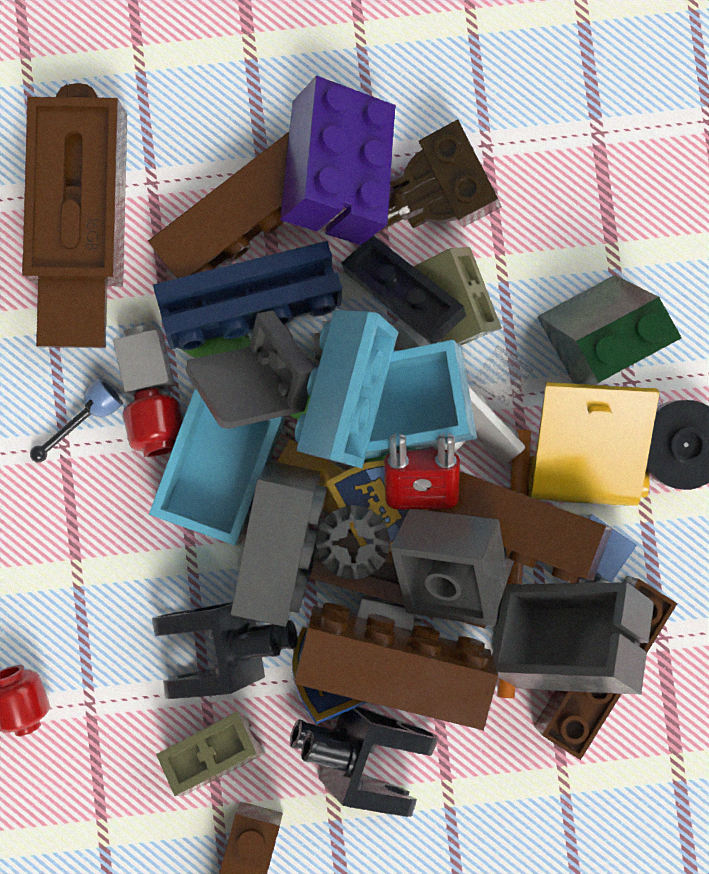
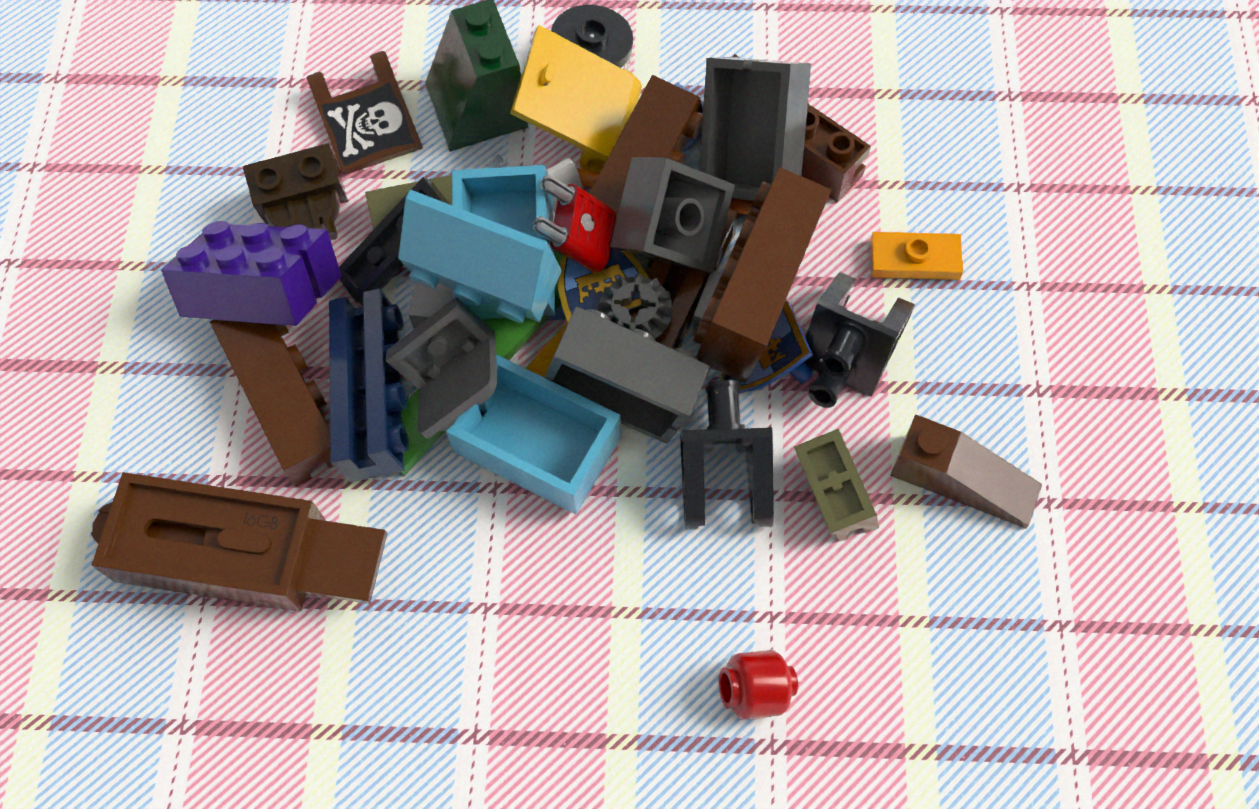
camera: 80 degrees left, 20 degrees down
(99, 401) = (442, 556): hinge -> none
(143, 360) = (410, 501): light grey brick -> none
(152, 422) = (478, 497): red head -> none
(477, 812) = (916, 255): none -> light orange plate
(557, 226) = (367, 122): none -> flag

